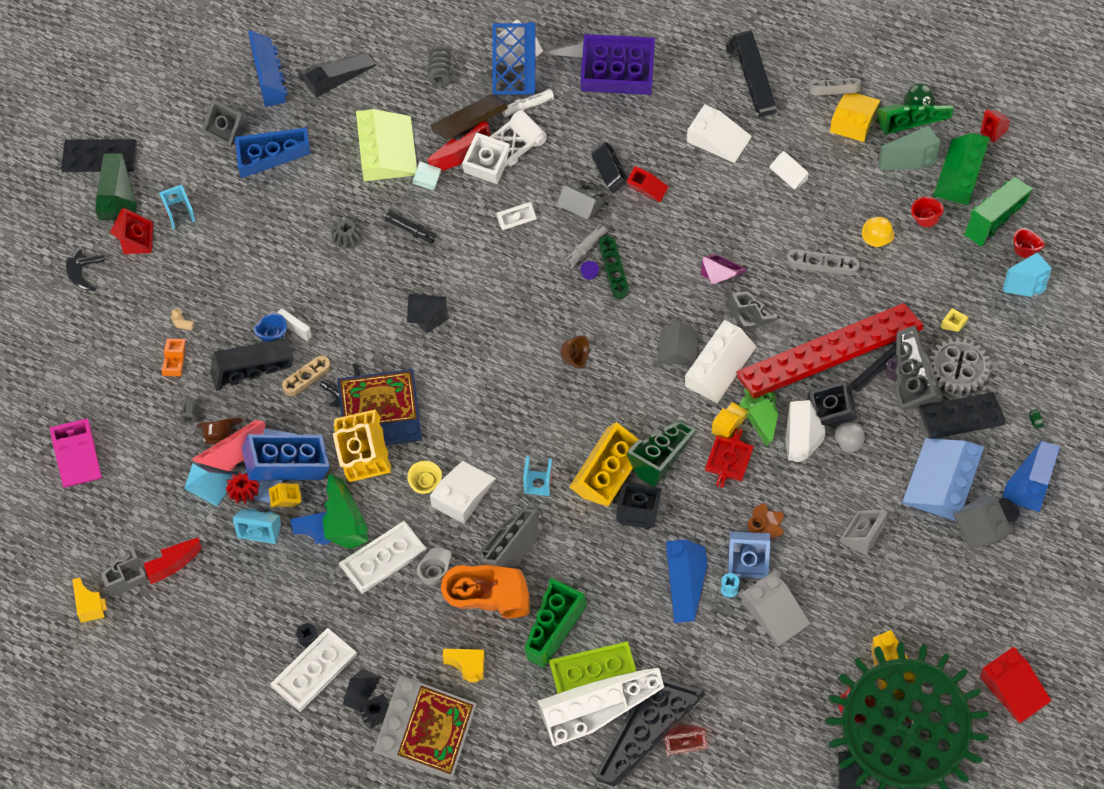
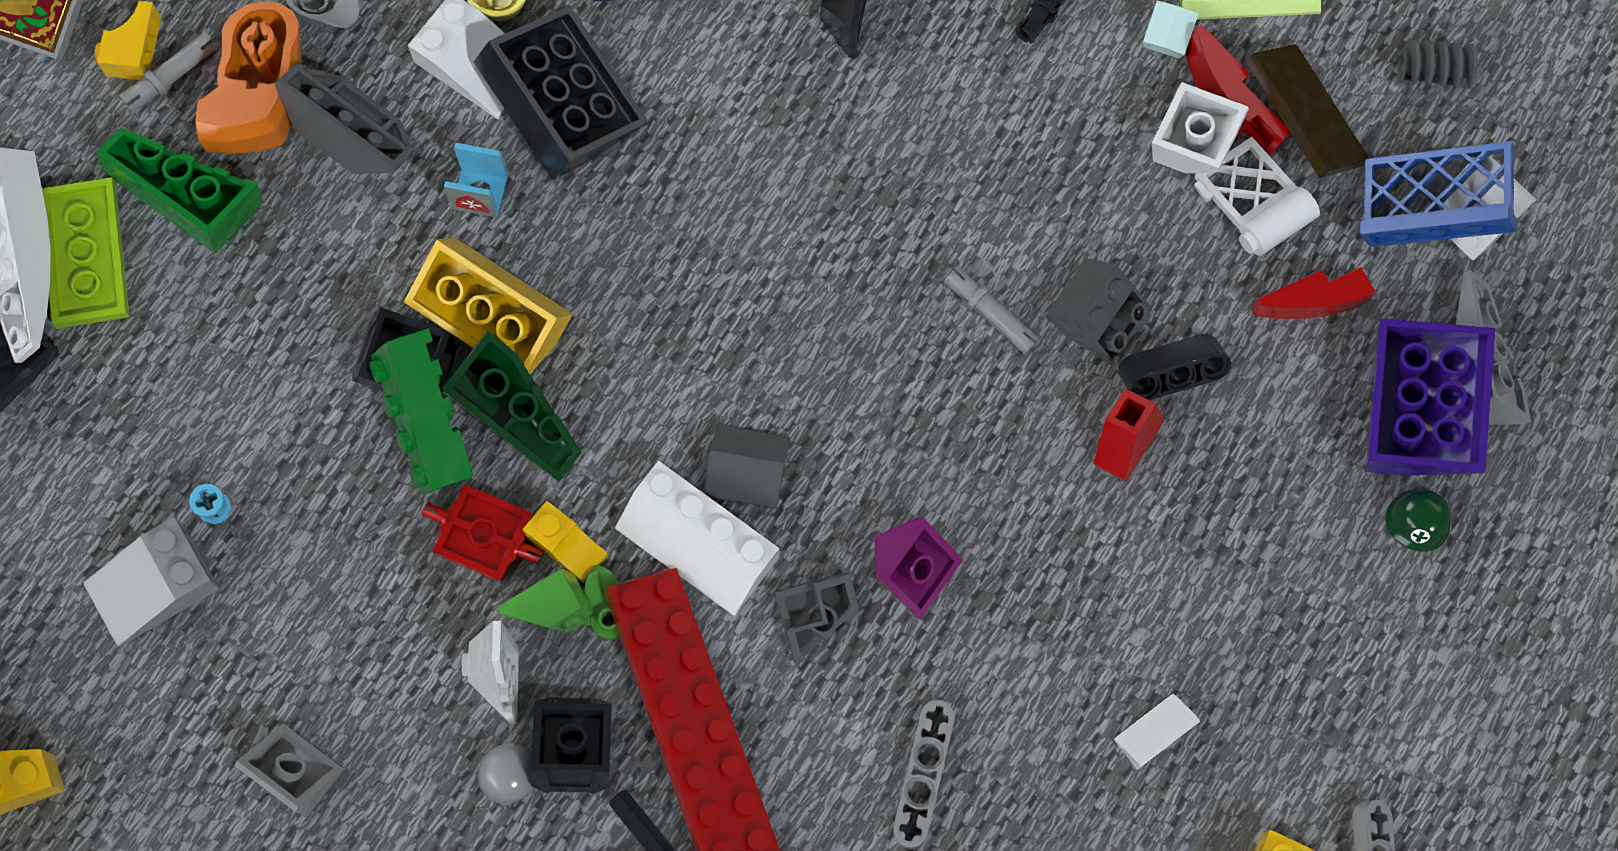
camera: 90 degrees right, 15 degrees up
(481, 643) = (168, 72): none -> light grey pin
(483, 443) = (559, 91): none -> black slope
(516, 216) = (1074, 188): white slope -> none
(529, 102) = (1338, 211): white pin -> none
(565, 111) = (1316, 296): none -> red slope
(575, 351) = (740, 269): reddish brown helmet -> none
(589, 270) = (937, 314): dark purple tile -> none
(613, 267) = (940, 364): dark green beam -> none
(669, 482) = (421, 412): none -> green wedge
(673, 72) = (1419, 520): none -> dark green helmet
(686, 576) = (248, 428): blue wedge -> none
(717, 134) = (1252, 593): white slope -> none
(746, 49) = (1403, 674): black beam -> none
(749, 554) = (271, 545): medium blue slope -> none
(767, 520) = (343, 593): dark orange plate -> none

